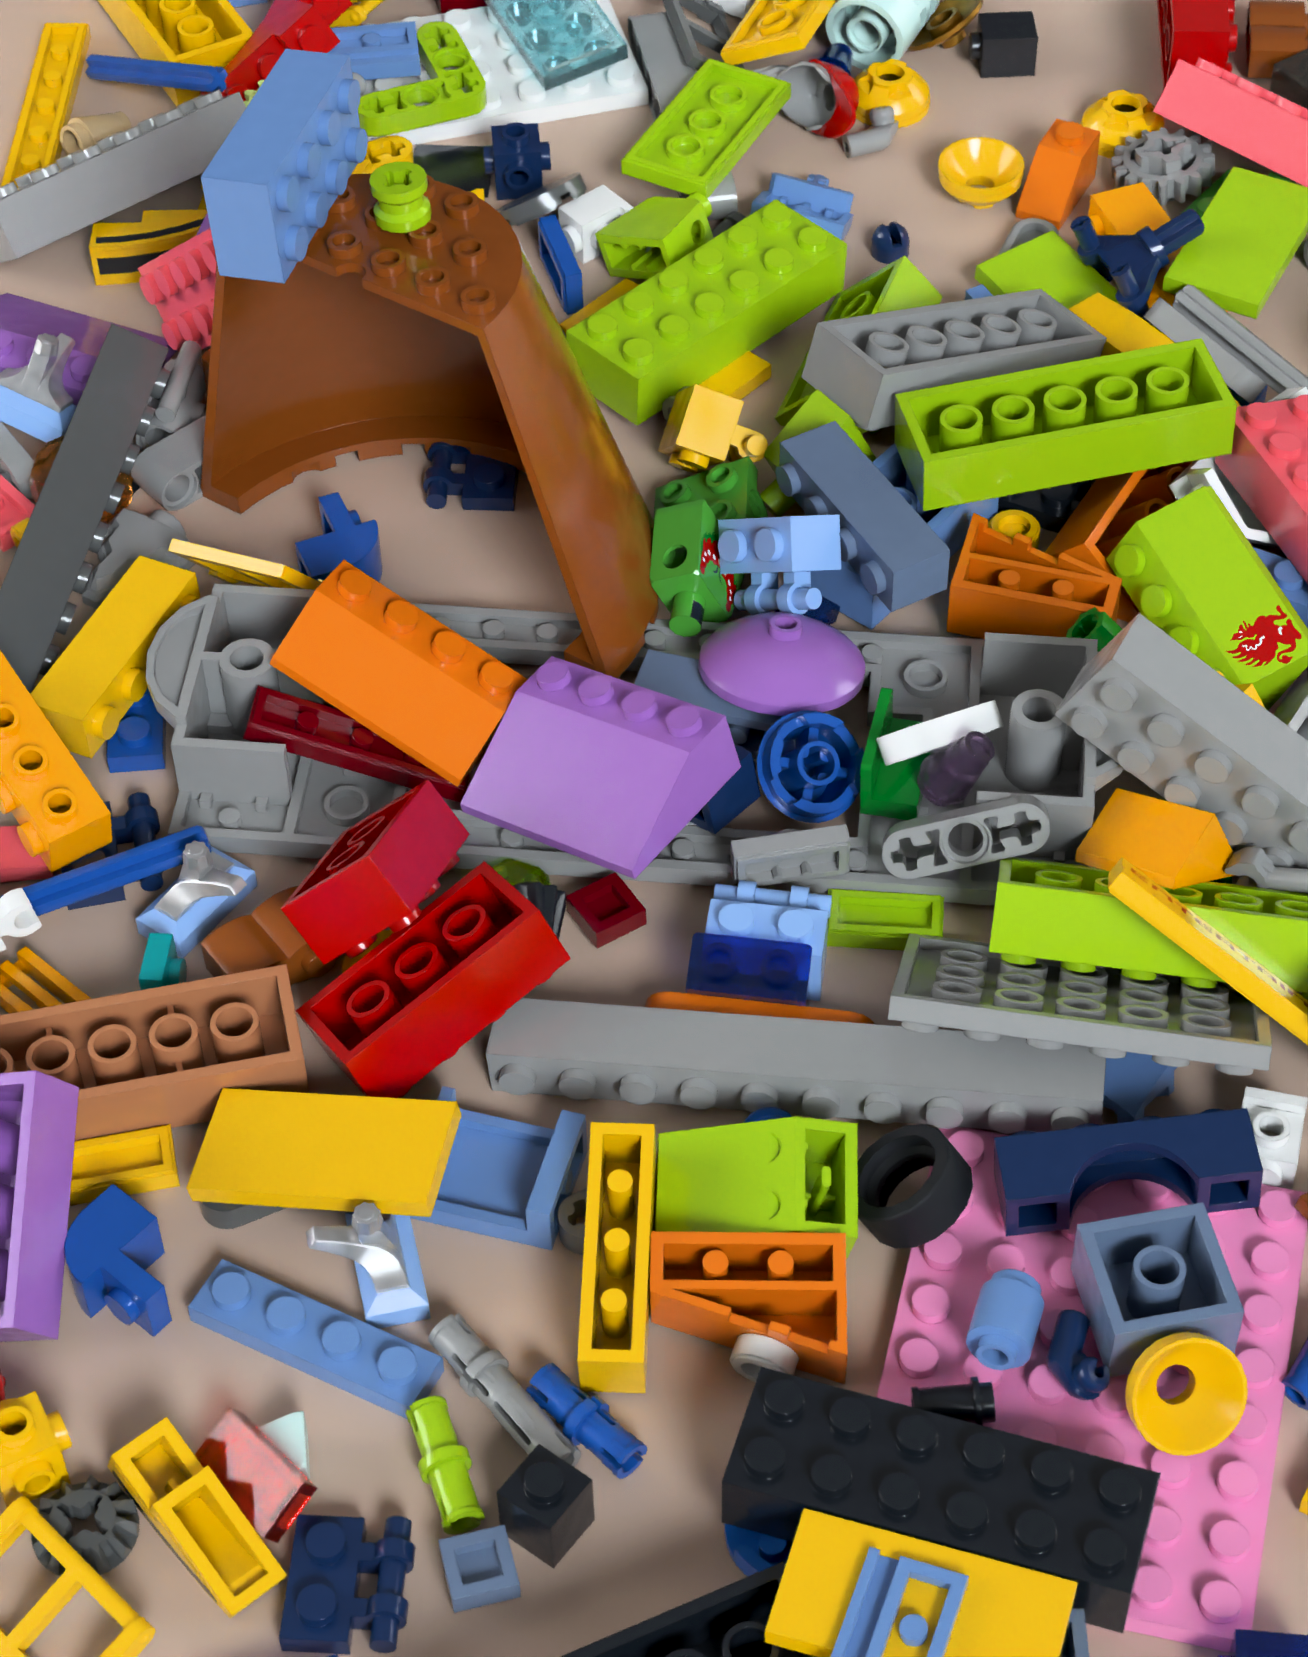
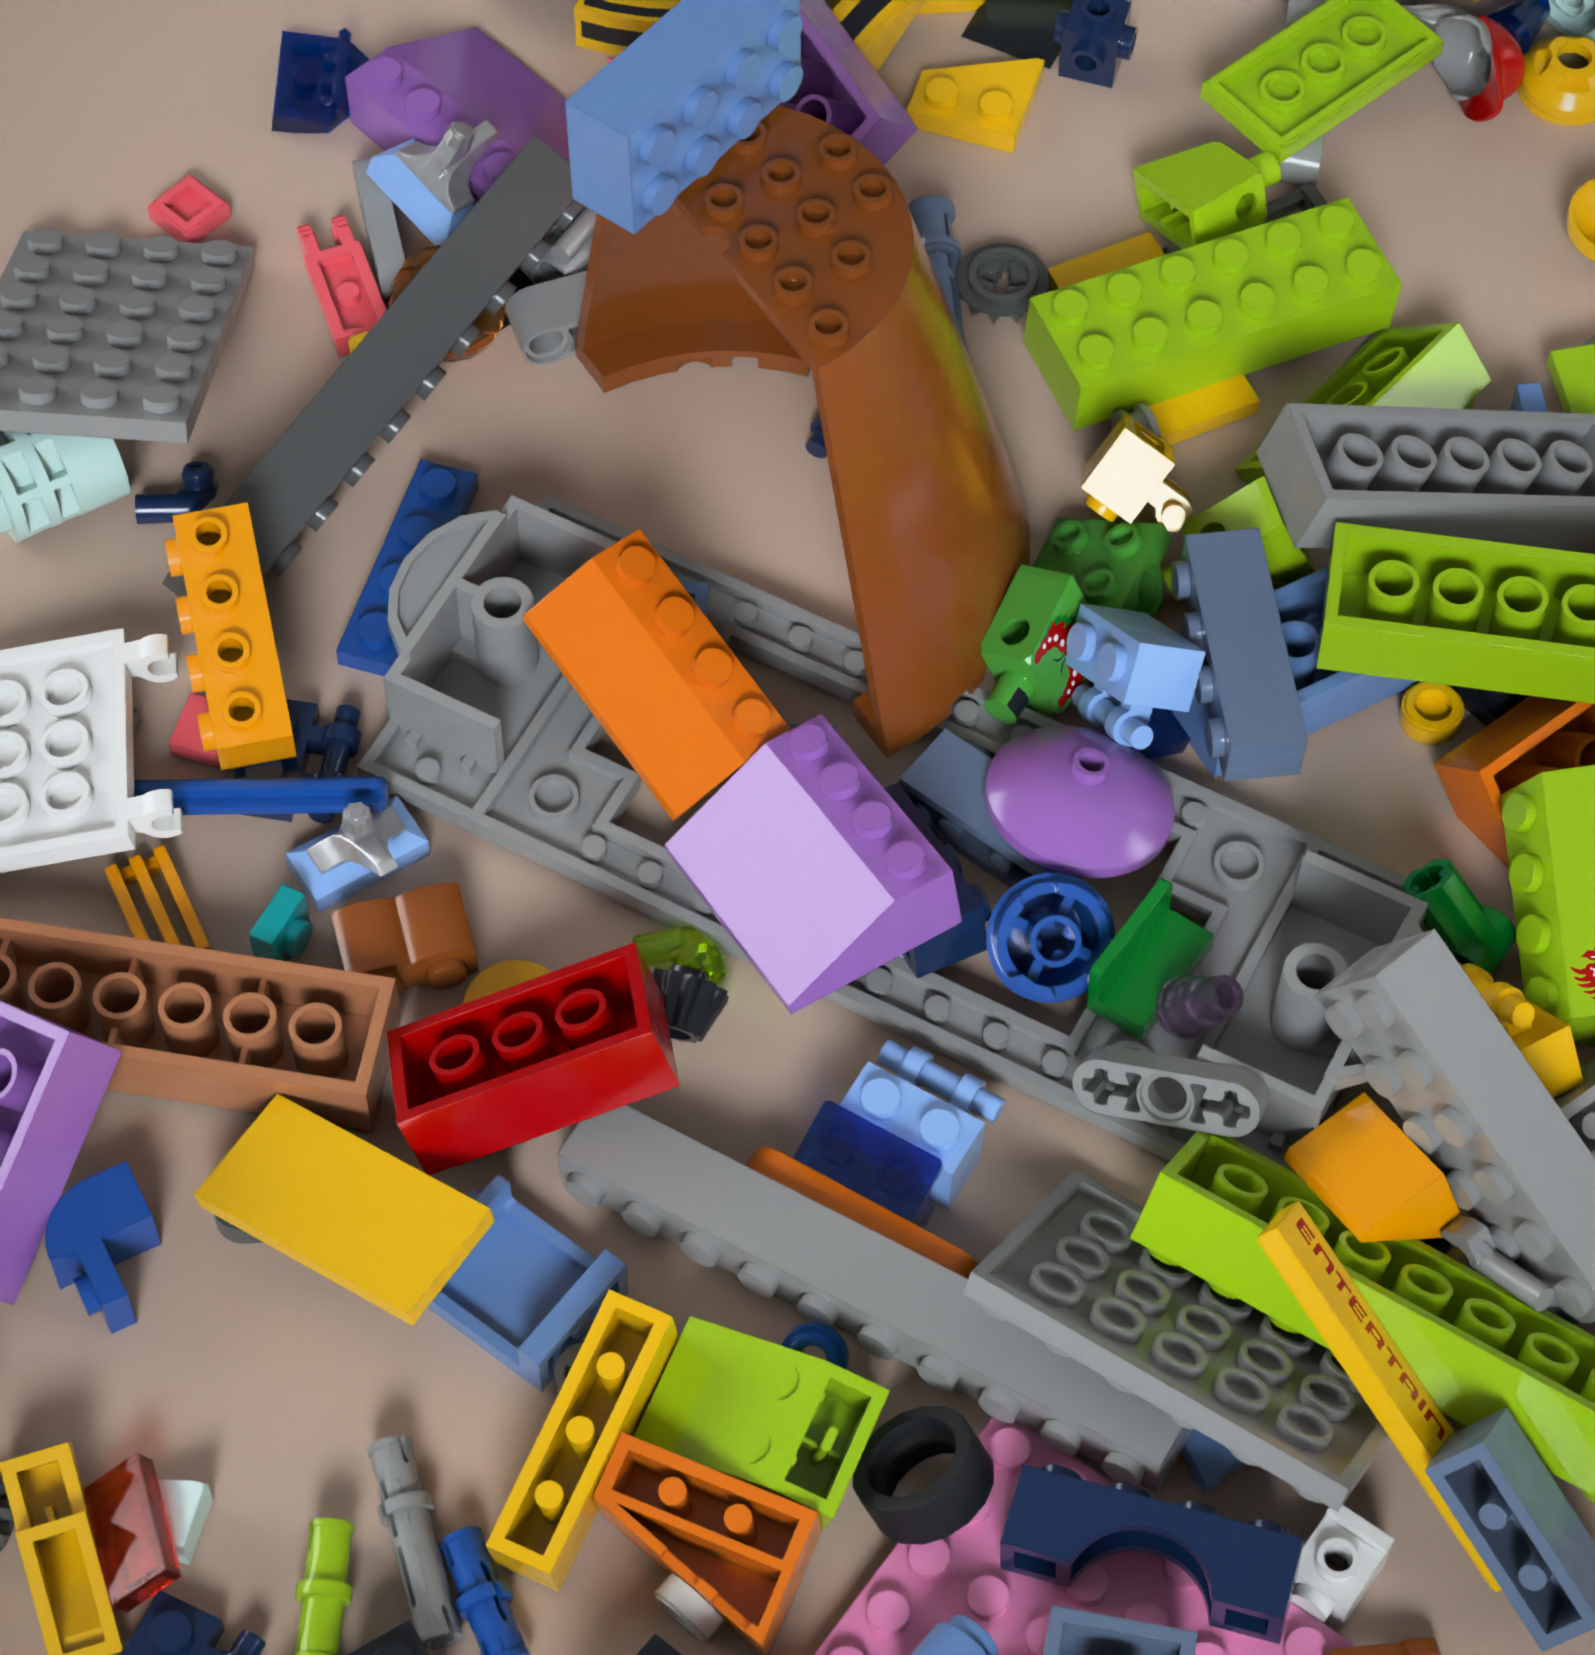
camera: 20 degrees right, 10 degrees up
(107, 659) = (356, 554): yellow brick -> none
(126, 539) = (468, 414): light grey rock -> none
(130, 1160) = (154, 1130): yellow tile -> none
(237, 567) = (562, 478): yellow window -> none
(315, 1338) = (263, 1402): medium blue plate -> none
(337, 740) = (562, 723): dark red tile -> none
(342, 539) = (680, 498): blue brick -> none
(377, 874) = (530, 907): red brick -> none
(384, 1263) = (363, 1351): piece -> none
(400, 197) = (800, 168): lime wheel -> none
(543, 200) = (1095, 101): dark grey tile -> none
(560, 264) = (1082, 191): blue tile -> none
(587, 216) = (1137, 141): white brick -> none
(606, 910) = (765, 1025): dark red plate -> none
(791, 855) = (978, 1040): light grey plate -> none
(811, 199) = (1398, 203): medium blue slope -> none
(876, 137) = (1528, 130): light grey arm -> none
(882, 240) = (1461, 283): dark blue hinge -> none
(882, 918) = (1057, 1139): lime tile -> none
(938, 732) = (1202, 954): white beam -> none
(1021, 590) = (1393, 800): orange wedge -> none

